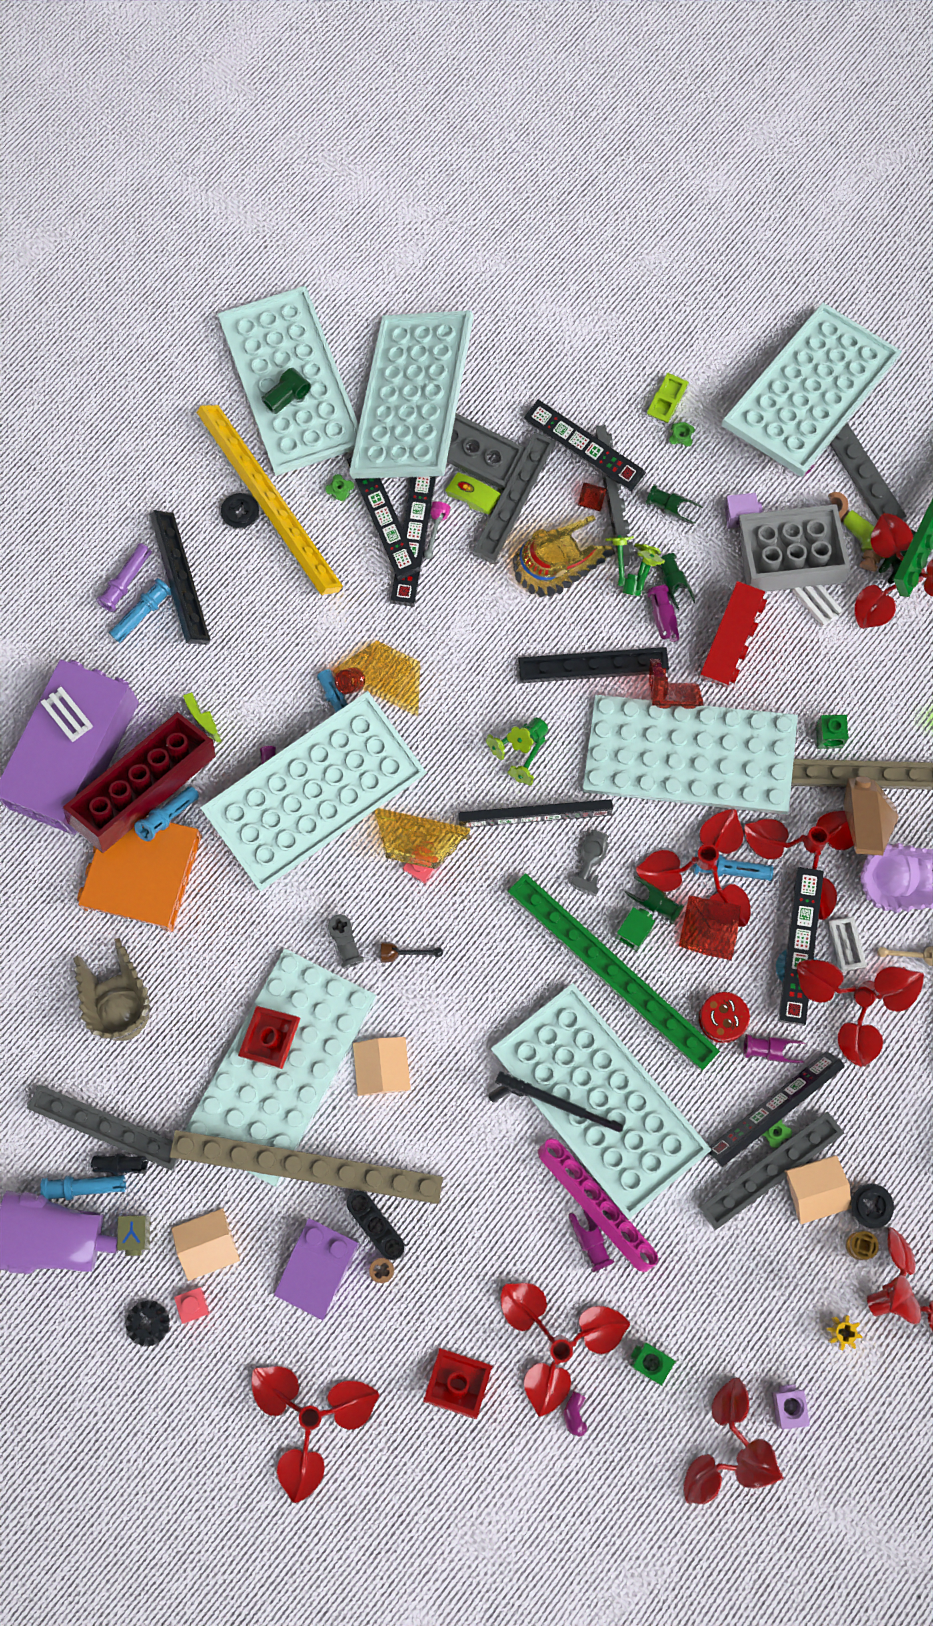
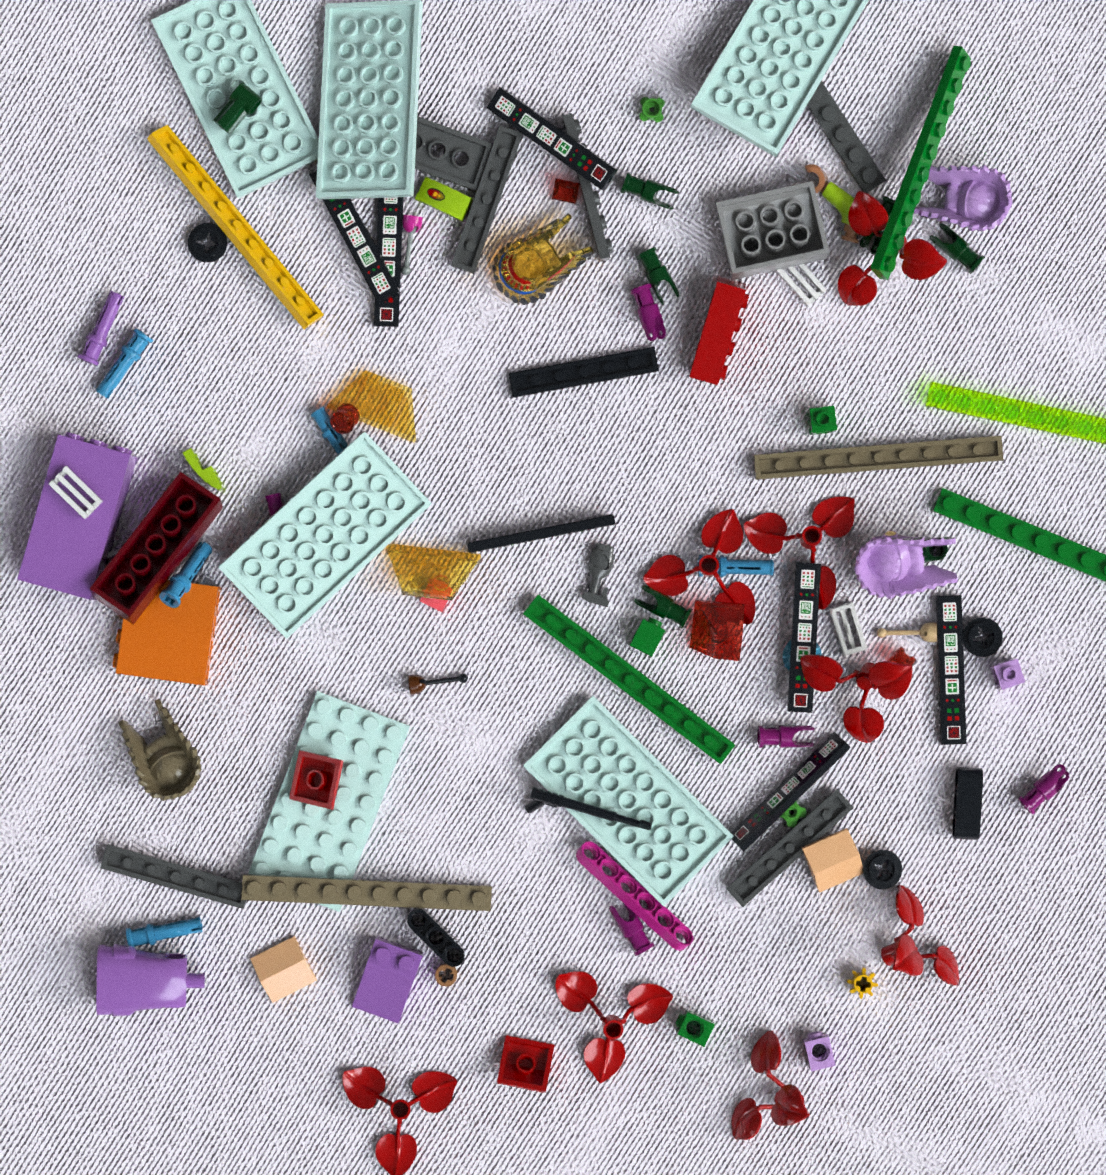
camera: 10 degrees left, 15 degrees up
(119, 1164) = (194, 908): black pin -> none
(133, 1234) = (217, 969): olive brick -> none
(158, 1328) = (253, 1046): black gear -> none
(179, 577) = (157, 323): black tile -> none
(192, 1305) = (279, 1023): coral plate -> none
(339, 494) = (308, 213): bright green plate -> none
(345, 941) = (374, 680): dark grey connector -> none
(381, 1066) = (423, 791): light nougat slope -> none
(521, 740) = (531, 451): lime plant -> none
(572, 1416) = (628, 1078): magenta arm -> none
(634, 583) = (616, 282): plant -> none
(668, 398) = (633, 69): lime slope -> none
(671, 694) = (664, 397): clear red bracket -> none
(691, 754) = (686, 457): light aqua plate -> none
(724, 1017) = (737, 712): red head -> none
(738, 505) = (719, 190): lavender brick -> none
(857, 1247) = (871, 902): pearl gold wheel -> none
(869, 815) = (862, 509): medium nougat wedge -> none

